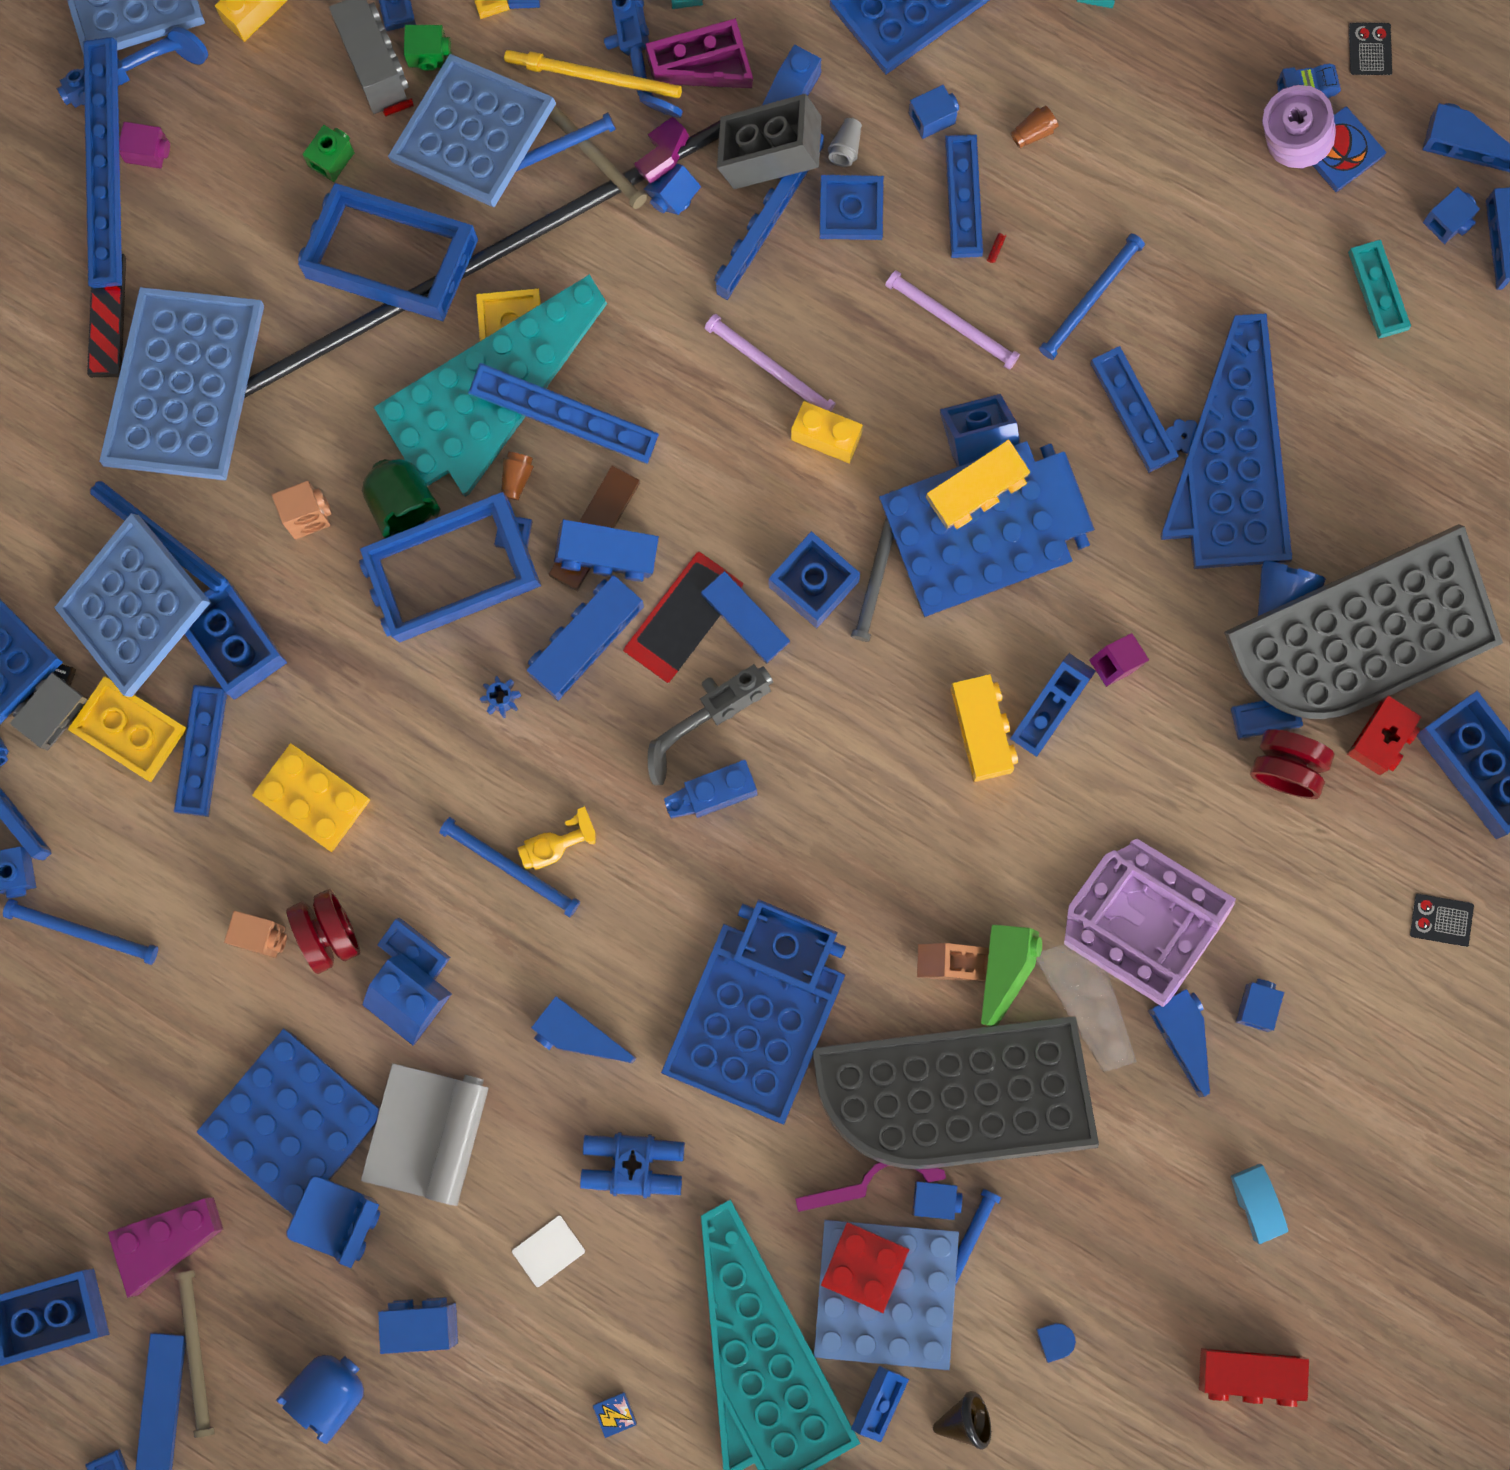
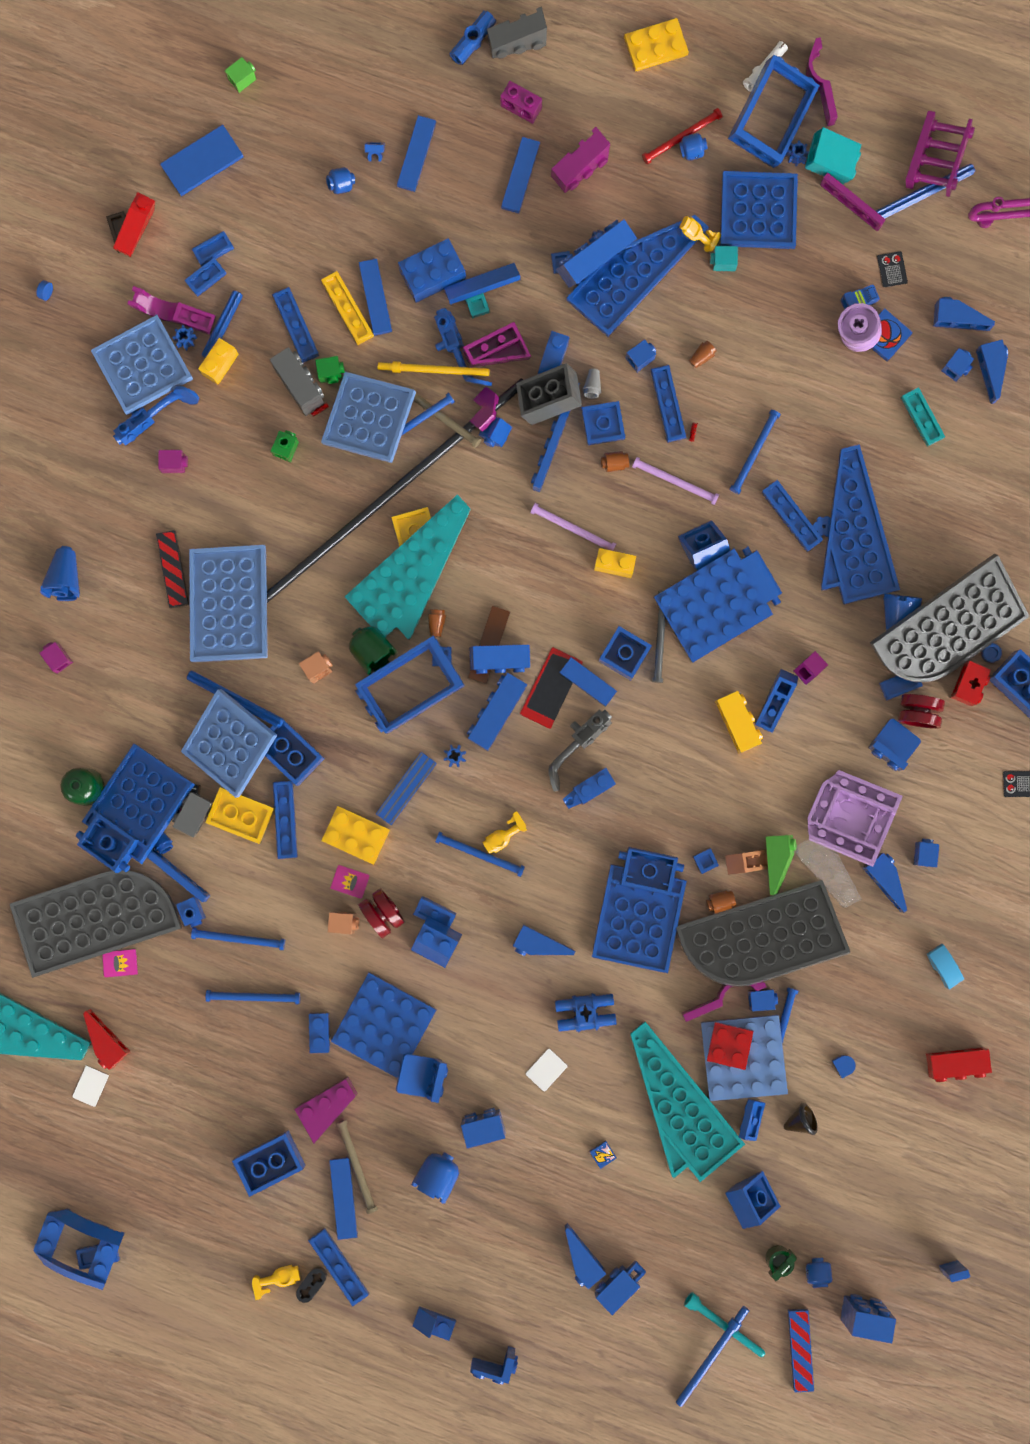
camera: 15 degrees left, 5 degrees up
(102, 163) = (151, 477): blue tile -> none
(152, 1048) = (252, 997): none -> blue bar
(180, 1114) = (319, 1033): none -> blue plate
(285, 873) = (350, 881): none -> dark pink sticker
(410, 736) = (406, 788): none -> blue tile
(425, 1133) = (463, 1017): light grey door -> none
(448, 276) = (373, 509): blue door -> none
(563, 413) = (458, 580): blue tile -> none
(858, 271) = (615, 461): none -> dark orange brick
(885, 949) = (705, 861): none -> blue tile
(897, 1021) = (721, 901): none -> dark orange brick
(978, 486) = (712, 581): yellow brick -> none
(1238, 814) = (894, 745): none -> blue bracket
(1428, 693) = (991, 653): none -> blue tile

